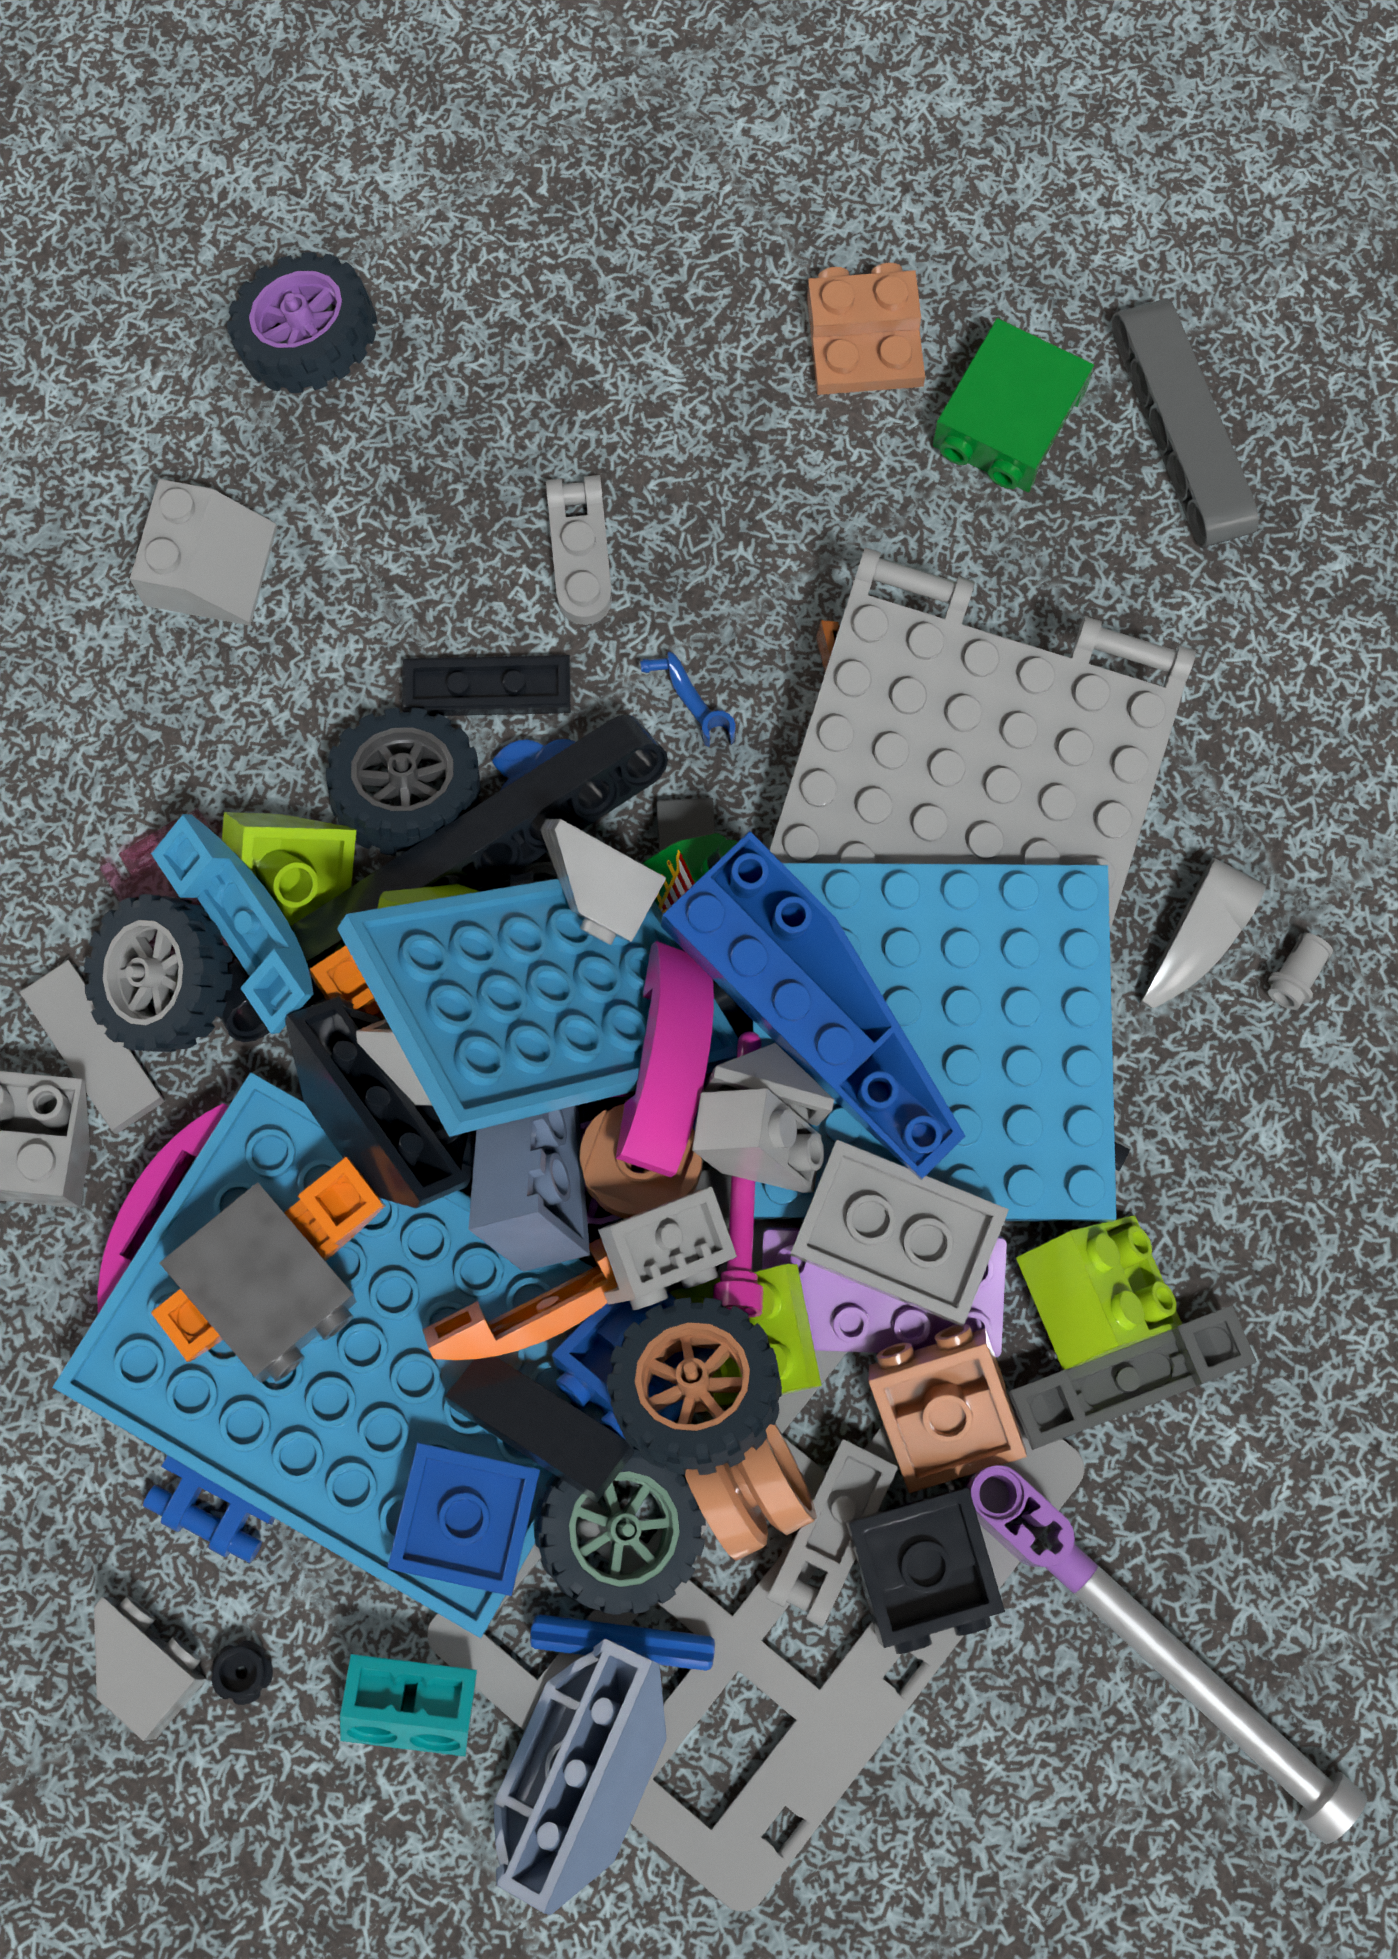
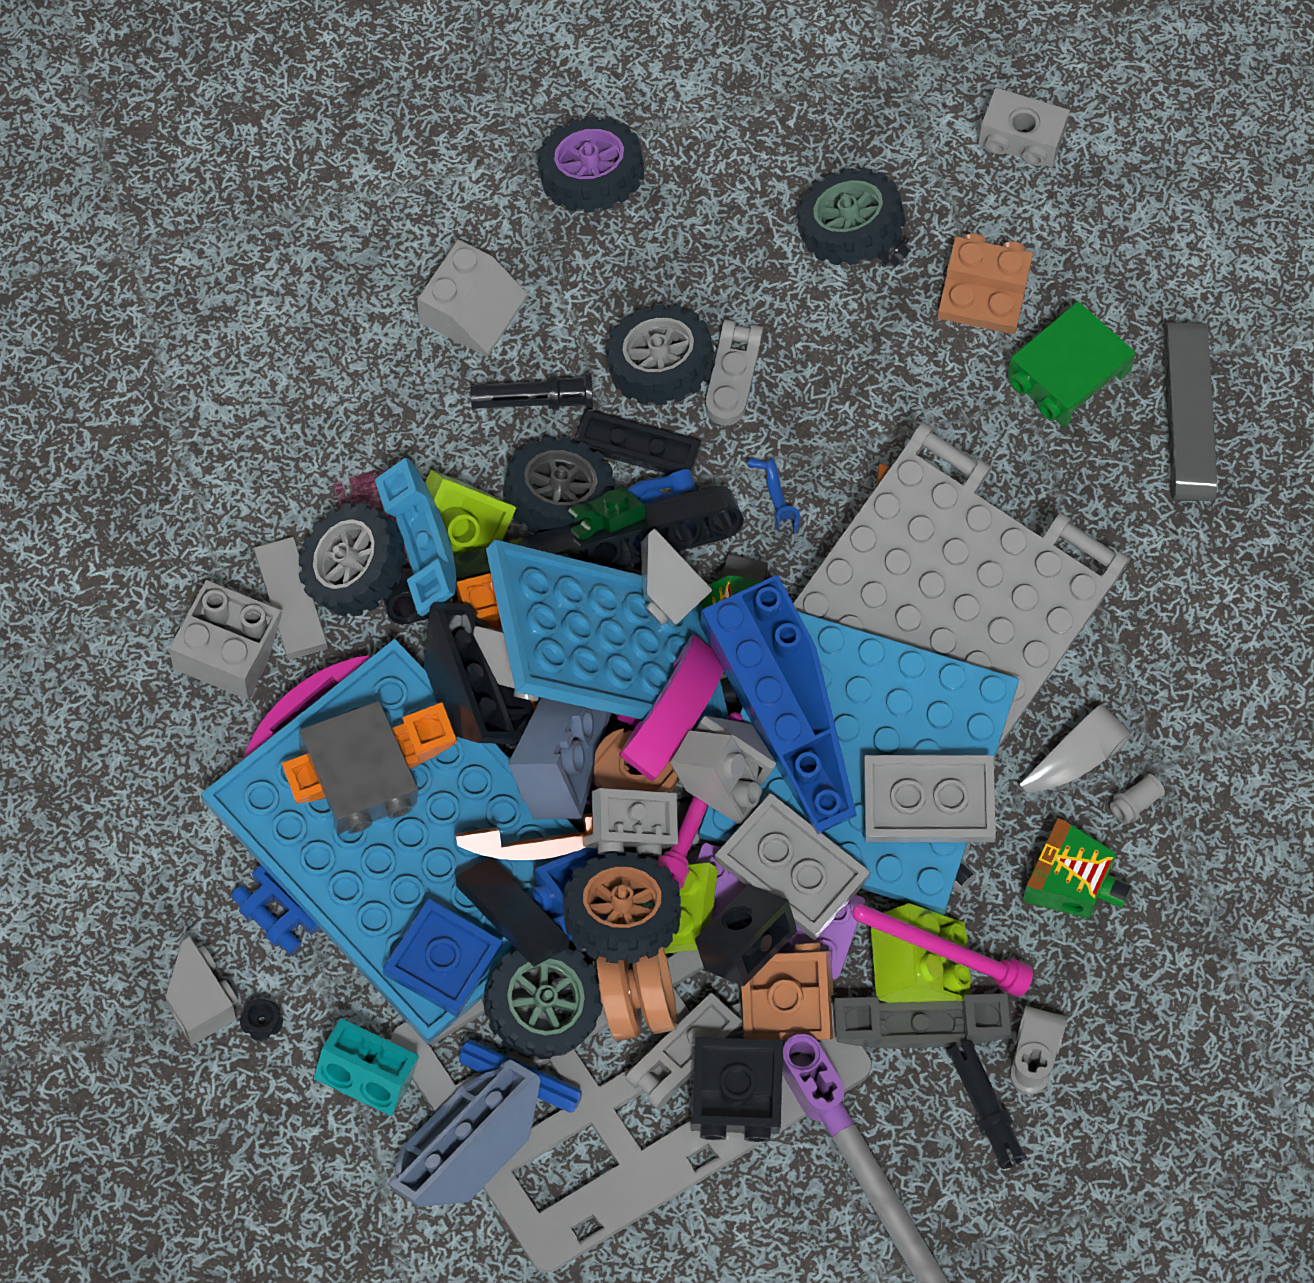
camera: 15 degrees right, 10 degrees down
(352, 650) = (553, 392): none -> black pin
(463, 522) = (671, 375): none -> black wheel
(485, 799) = (611, 511): none -> dark green plate
(560, 723) = (678, 482): none -> blue piece
(685, 316) = (845, 201): none -> black wheel
(733, 321) = (896, 253): none -> black plate
(863, 91) = (1014, 112): none -> light grey brick
(876, 1387) = (746, 935): none -> black brick
(1051, 1077) = (929, 798): none -> light grey plate
(1223, 1274) = (1011, 976): none -> dark pink piece
(1256, 1469) = (994, 1120): none -> black pin
(1258, 1103) = (1074, 874): none -> torso
(1292, 1355) = (1037, 1044): none -> light grey piece

